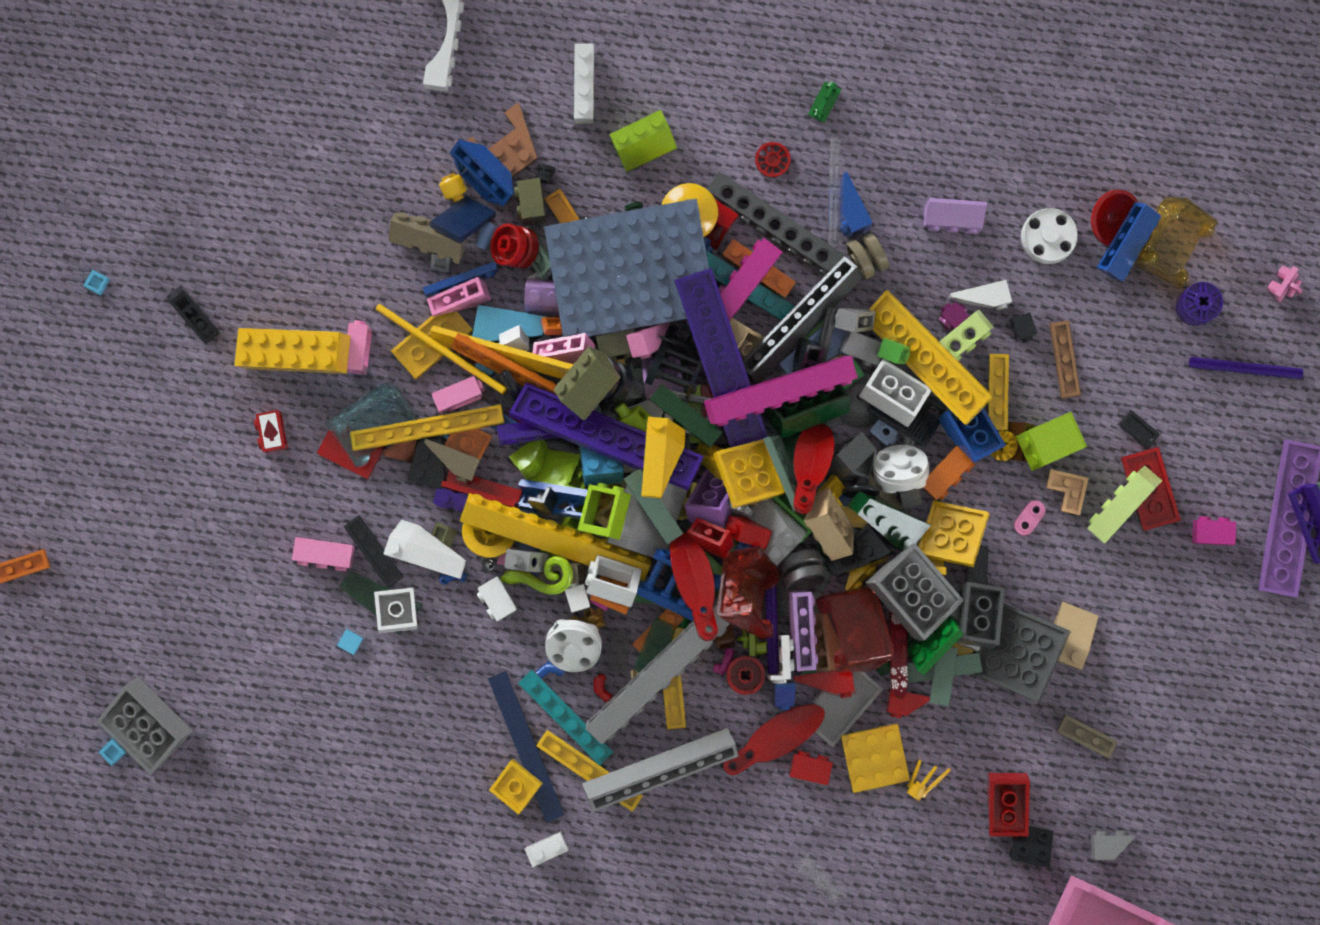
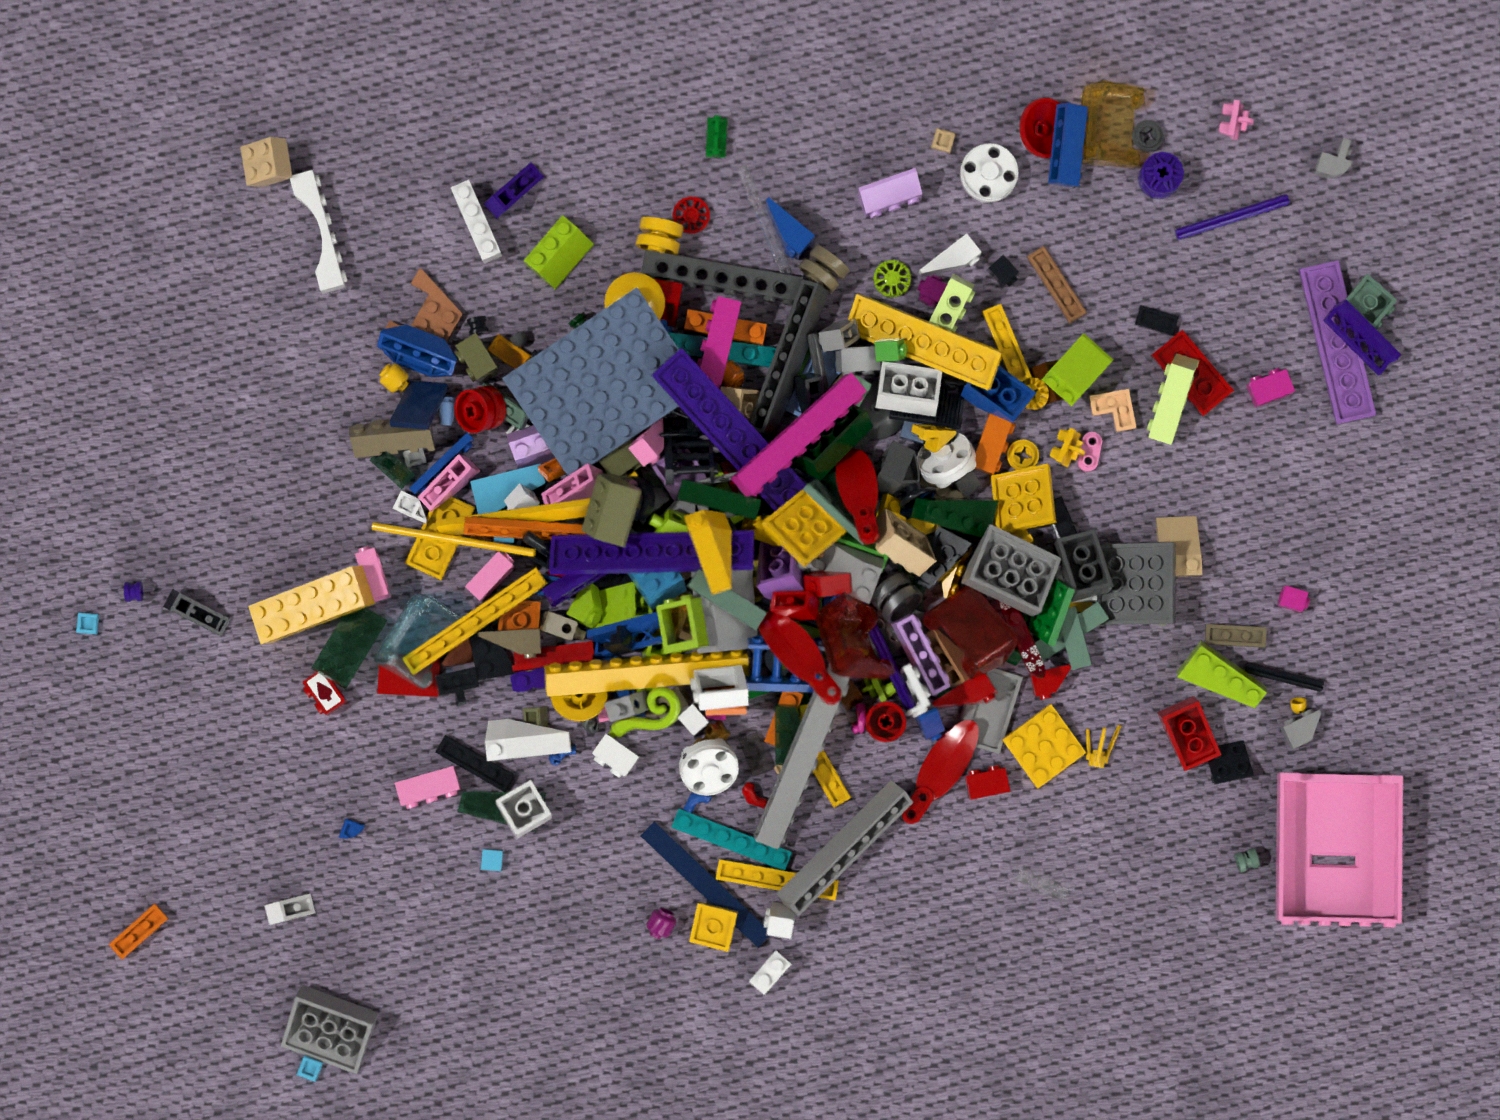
camera: 30 degrees left, 0 degrees up
(147, 272) = (133, 591): none -> dark purple wheel
(157, 606) = (289, 909): none -> white slope
(241, 560) = (350, 829): none -> blue tile
(309, 401) = (349, 646): none -> clear green plate
(388, 474) = (457, 683): none -> black plate
(417, 265) = (393, 469): none -> clear green slope
(417, 304) = (410, 506): none -> white slope
(471, 763) = (661, 923): none -> magenta head
(493, 460) = (552, 625): none -> dark tan torso
(574, 808) = (779, 920): none -> white brick
(576, 201) = (519, 339): none -> dark grey hinge
(628, 70) = (513, 190): none -> dark purple slope
(737, 164) = (659, 235): none -> yellow wheel
(747, 313) = (733, 375): none -> orange head
(899, 443) = (935, 436): none -> yellow slope
(923, 291) = (892, 278): none -> lime wheel
(978, 494) = (1017, 447): none -> yellow gear
(1014, 507) = (1070, 447): none -> yellow hips
(1020, 191) = (943, 140): none -> tan tile
(1058, 765) = (1218, 674): none -> lime wedge
(1114, 792) = (1283, 676): none -> black axle
(1116, 822) = (1298, 705): none -> yellow hinge
(1152, 727) = (1293, 599): none -> dark pink brick
(1211, 266) = (1156, 133): none -> dark grey gear

